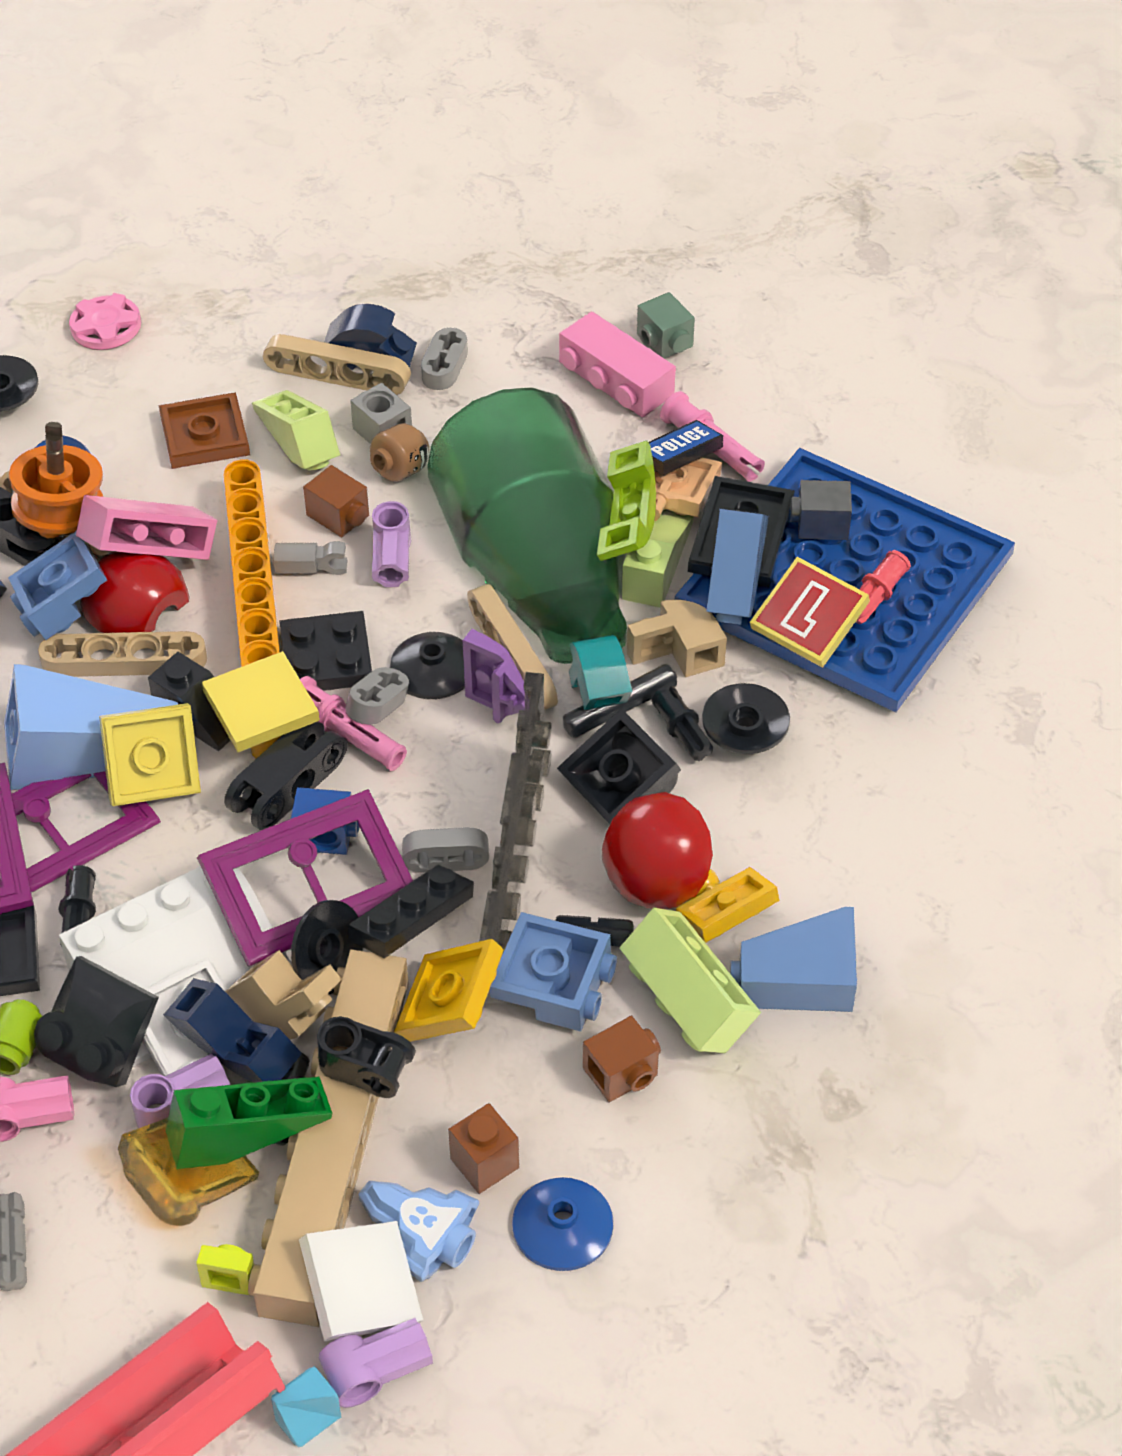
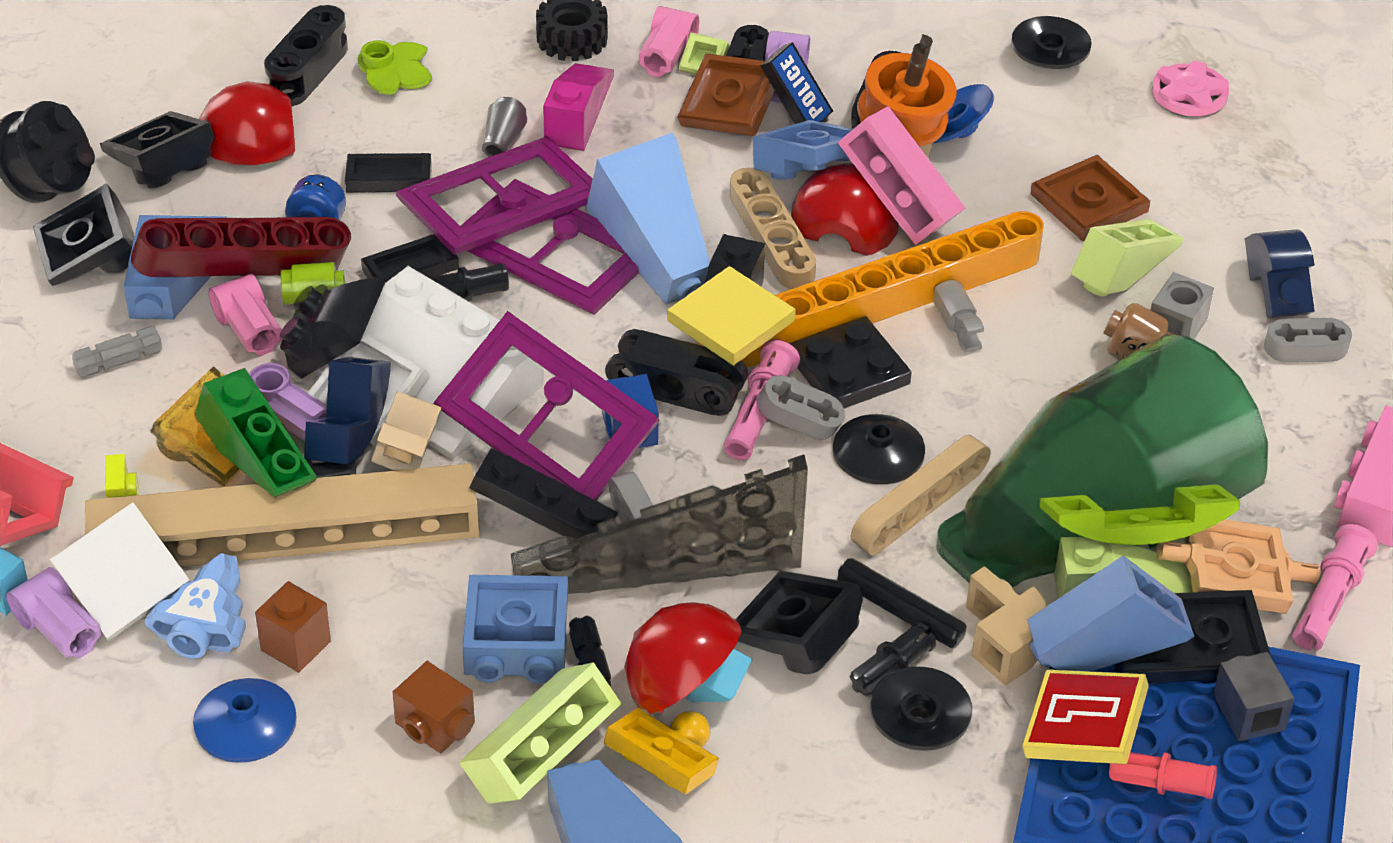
camera: 70 degrees right, 5 degrees down
(150, 754) = (639, 265): light yellow tile -> none
(292, 357) = (1235, 259): tan beam -> none
(323, 938) = (453, 432): black dish -> none
(336, 501) = (1042, 310): dark orange brick -> none
(367, 1056) = (337, 490): black piece -> none
(391, 544) = (1019, 364): lavender piece -> none
(449, 990) = (476, 551): yellow plate -> none
(492, 676) = (851, 479): medium lavender slope -> none
(600, 672) = (900, 554): teal brick -> none
(684, 446) = (1278, 550): tile -> none

